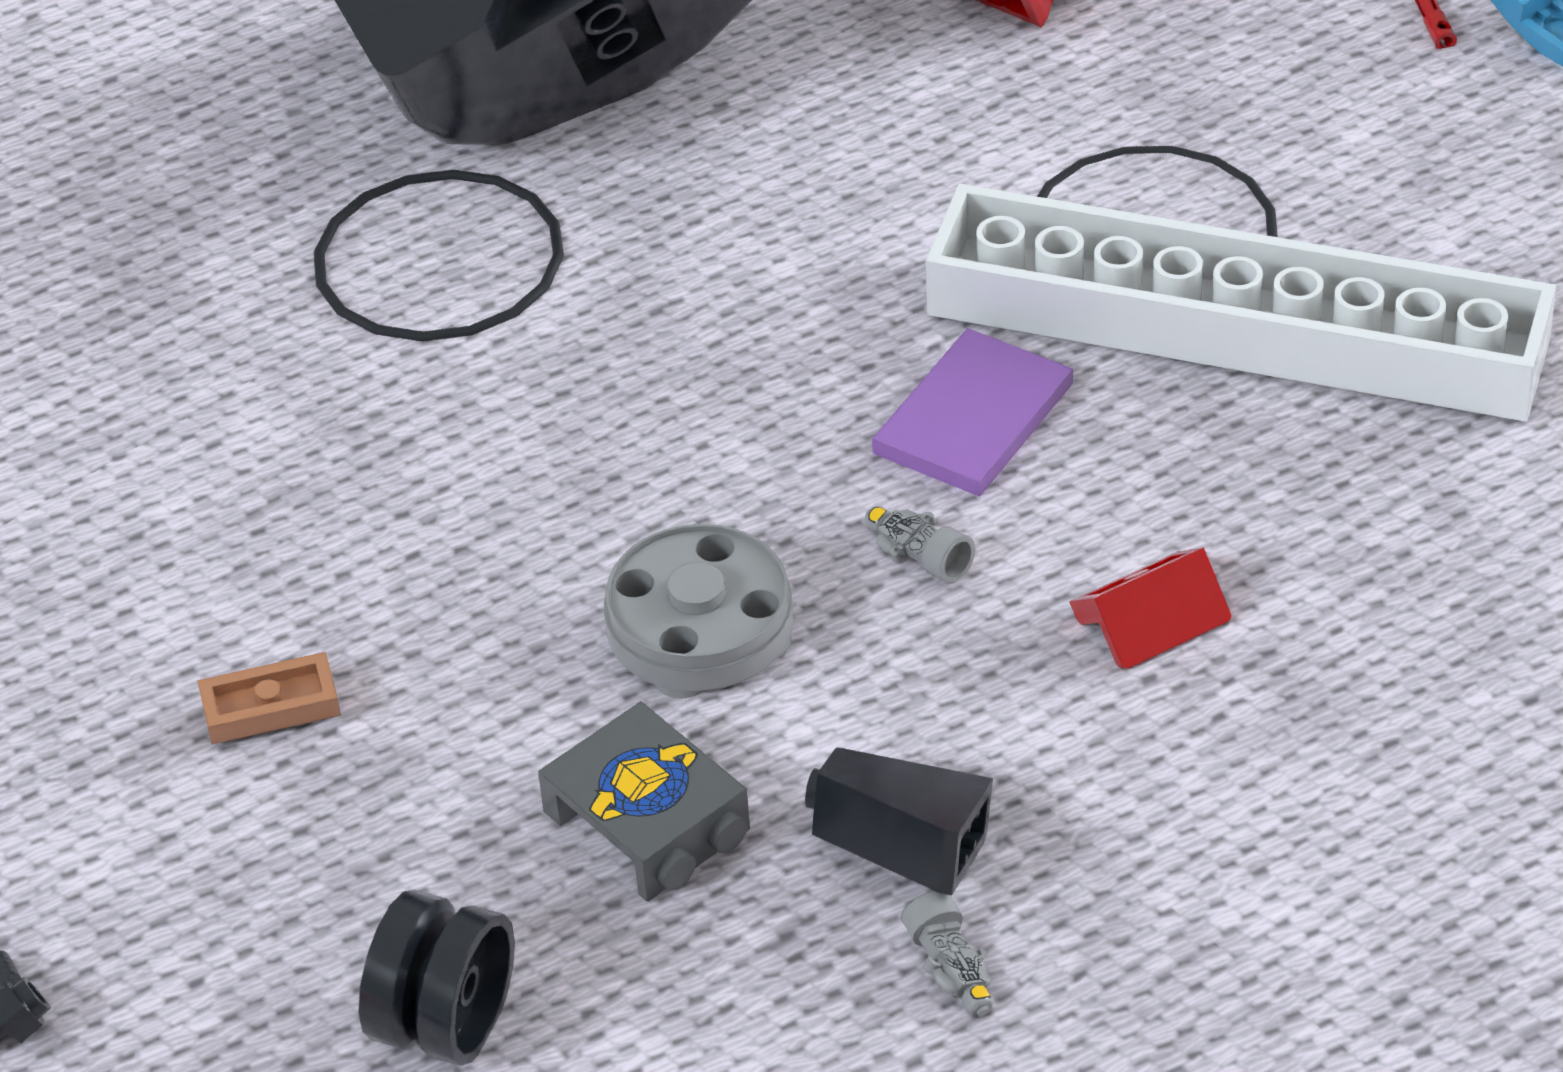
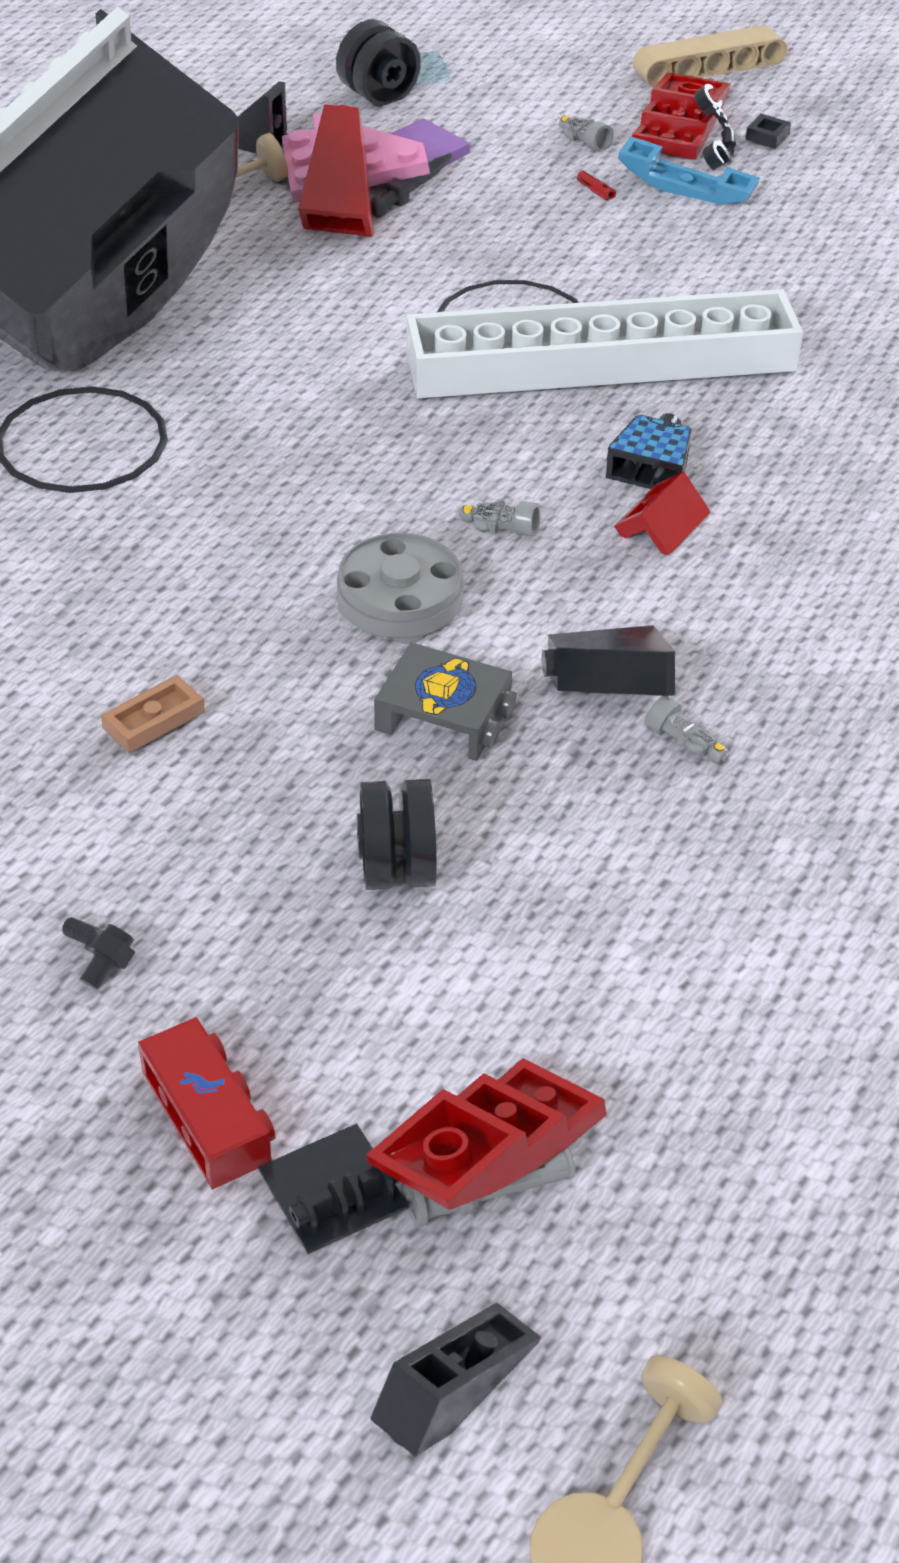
camera: 30 degrees left, 0 degrees up
(972, 411) = (482, 442): medium lavender tile -> none
(1196, 497) = (649, 451): none -> torso

